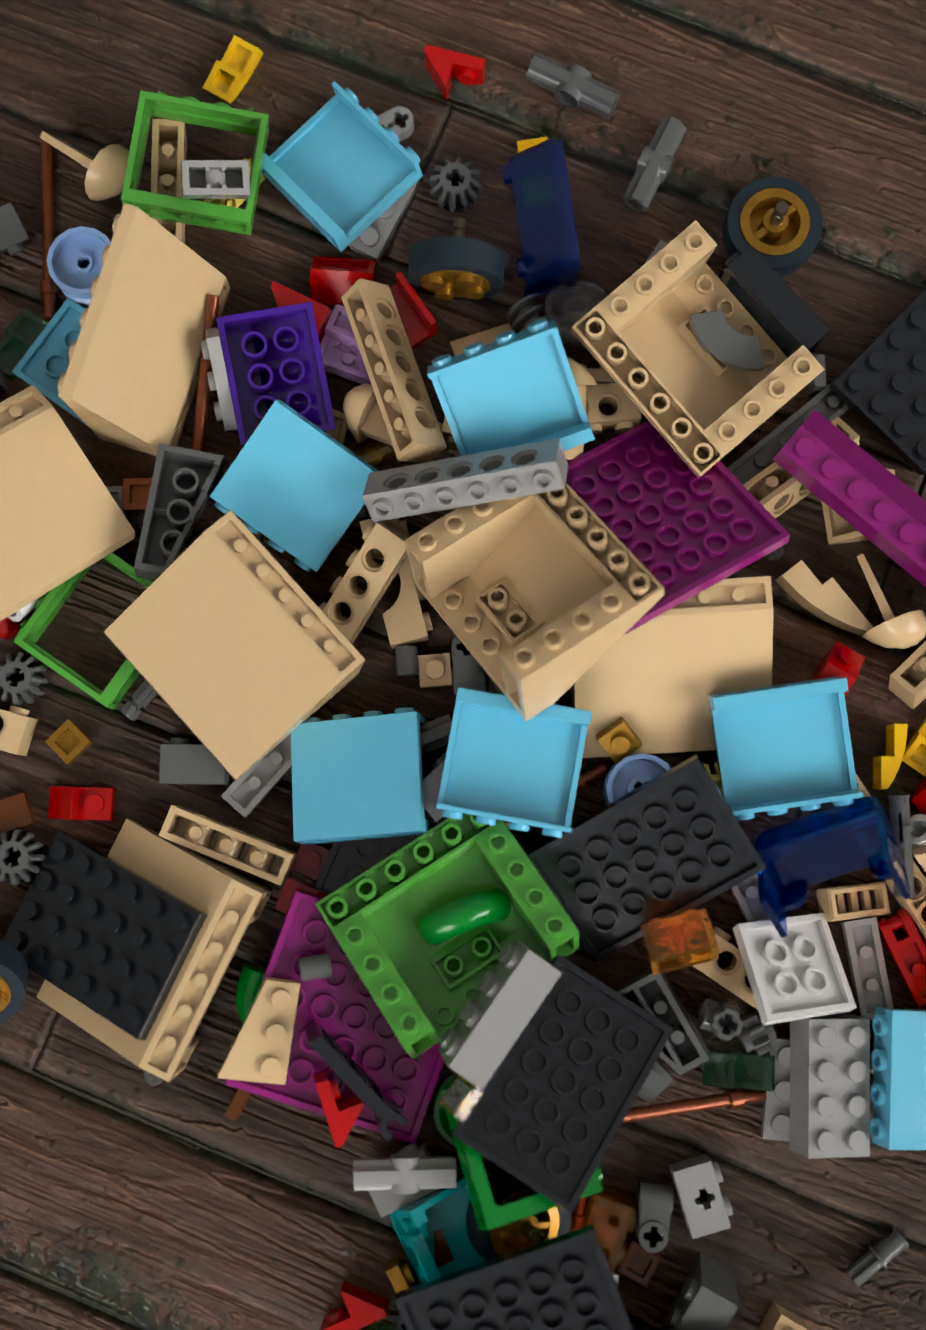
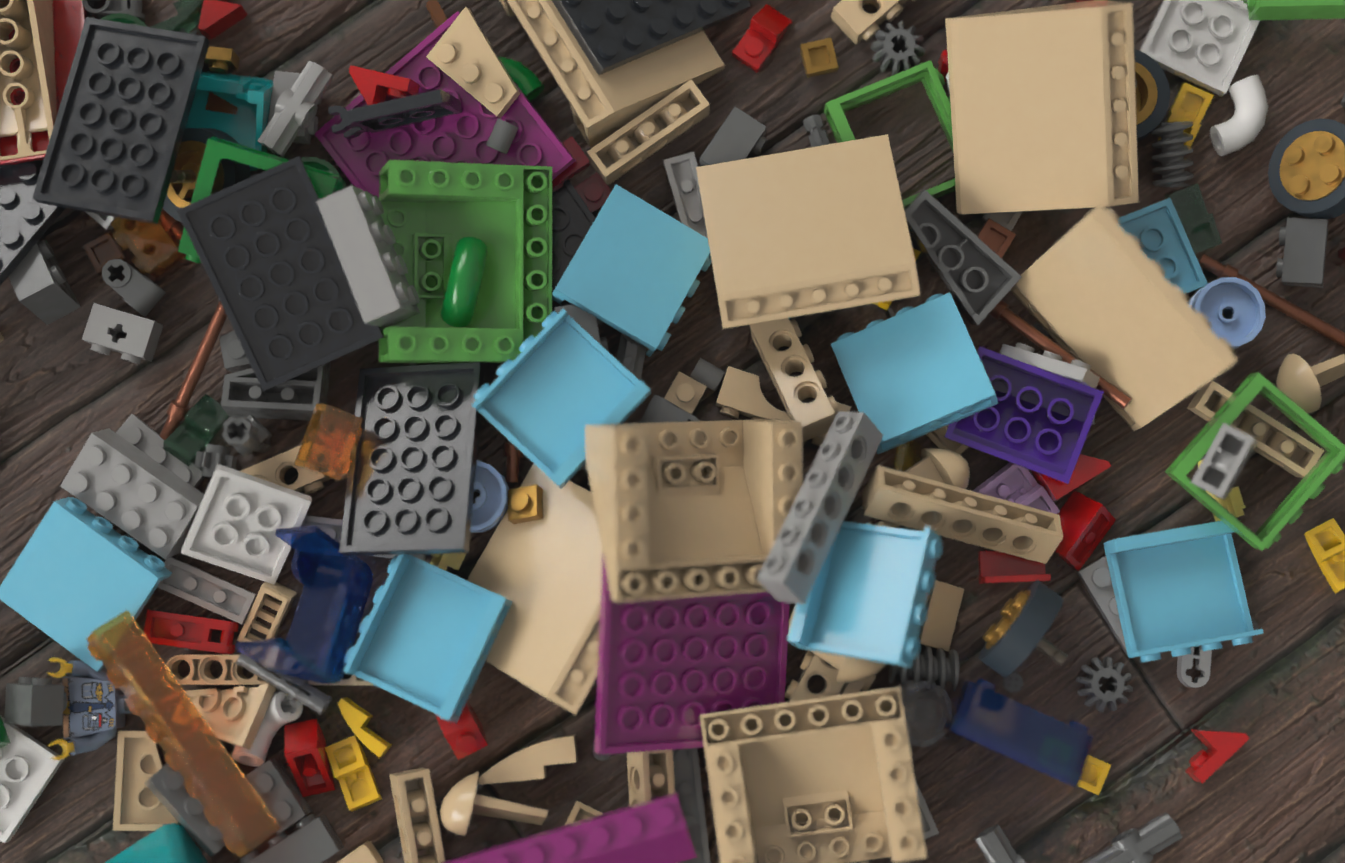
camera: 120 degrees right, 0 degrees up
(461, 1098) = (320, 181): tile -> none
(725, 343) = (806, 820): dark grey tile -> none

